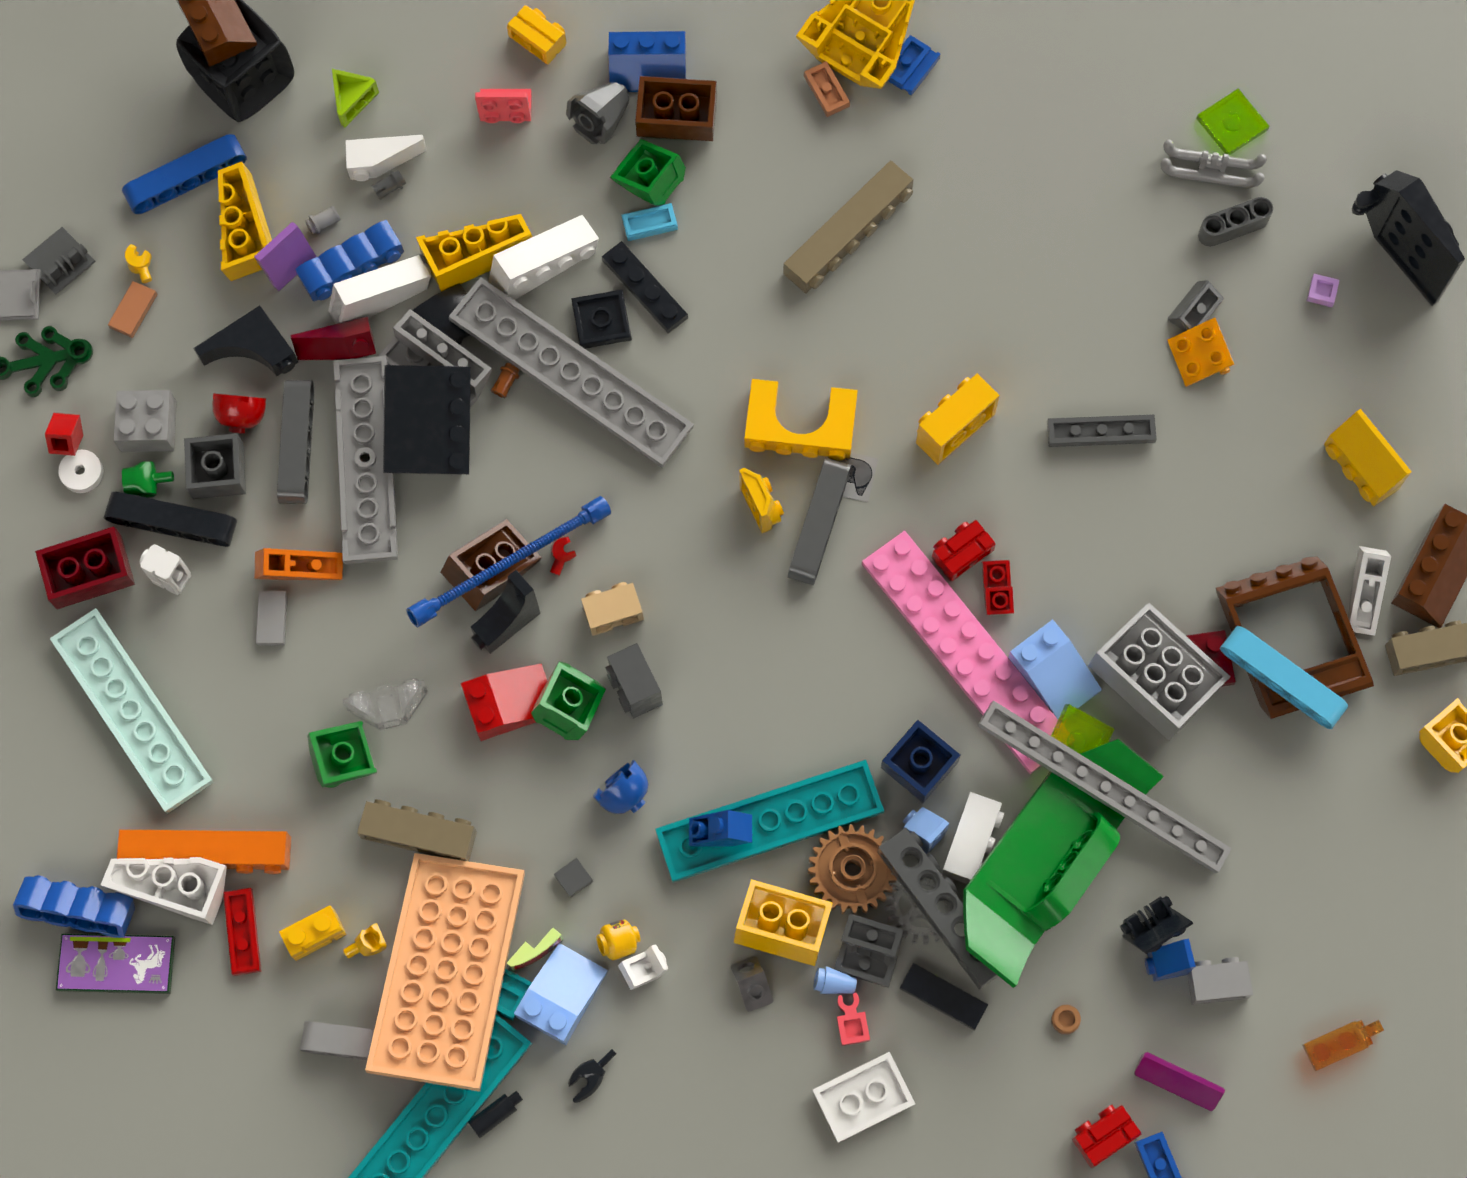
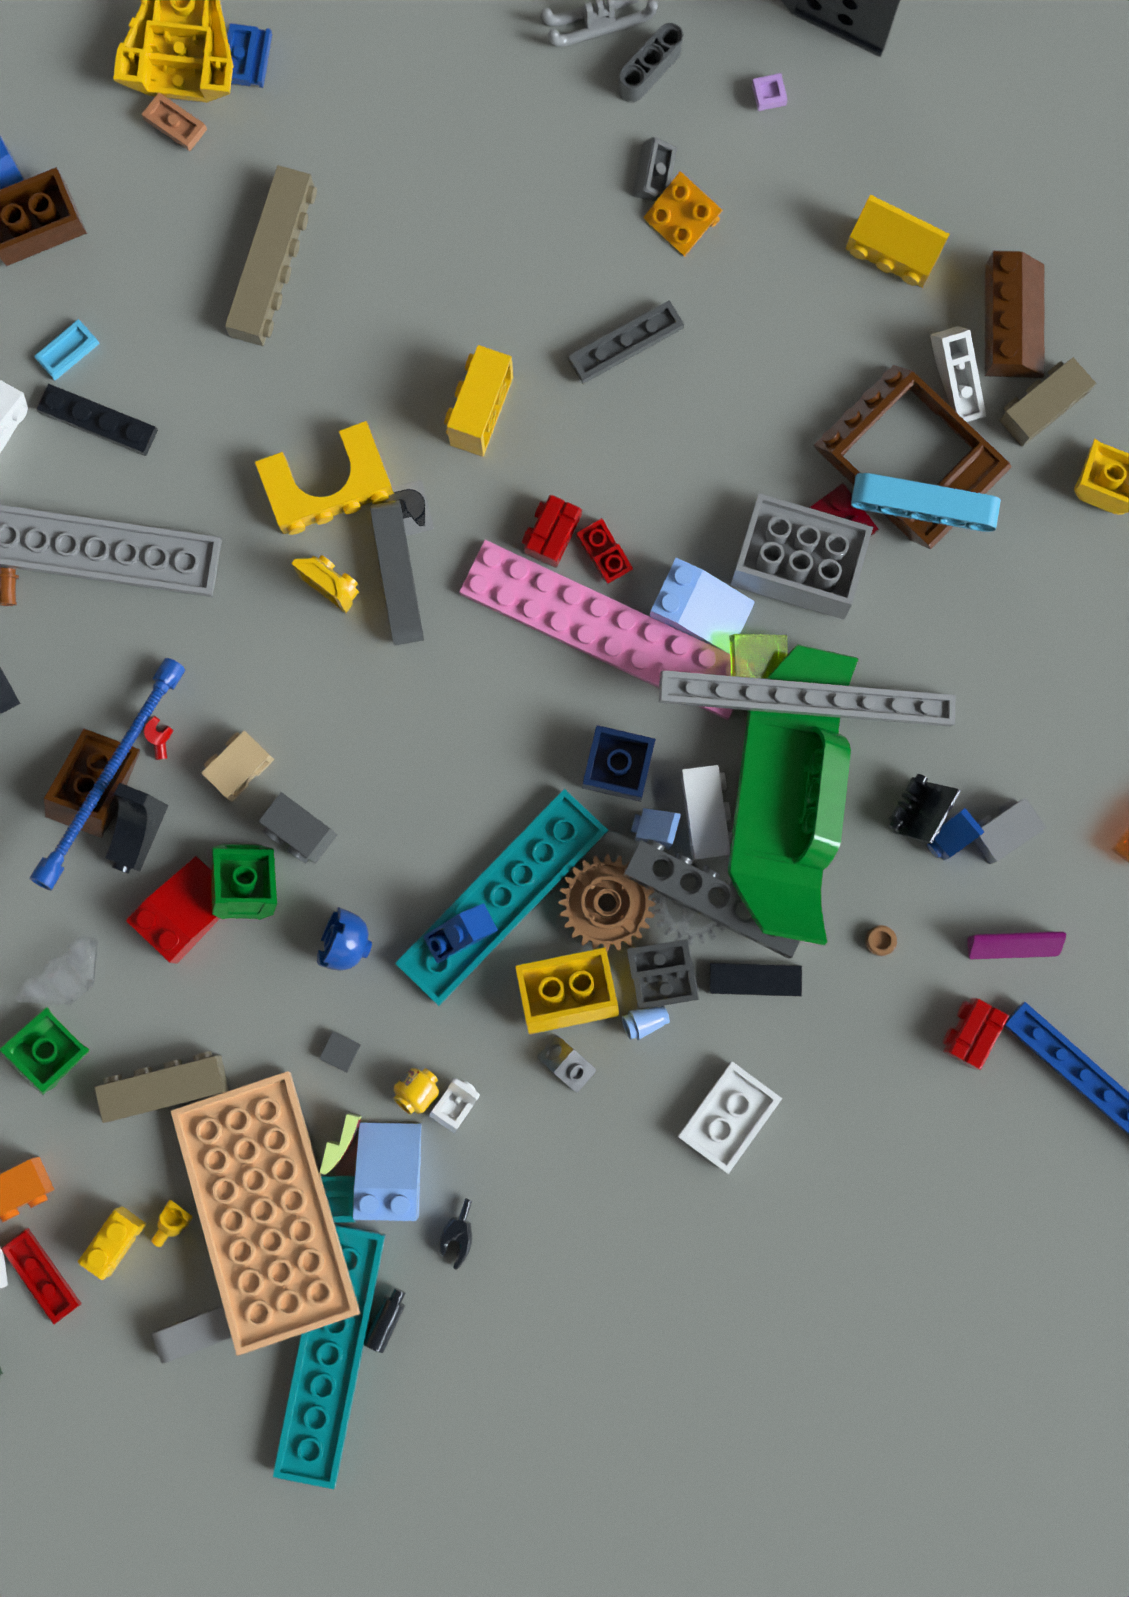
camera: 30 degrees left, 10 degrees up
(601, 319) = (70, 475): black tile -> none
(650, 172) = (39, 297): green slope -> none
(852, 1025) = (684, 1053): coral plate -> none

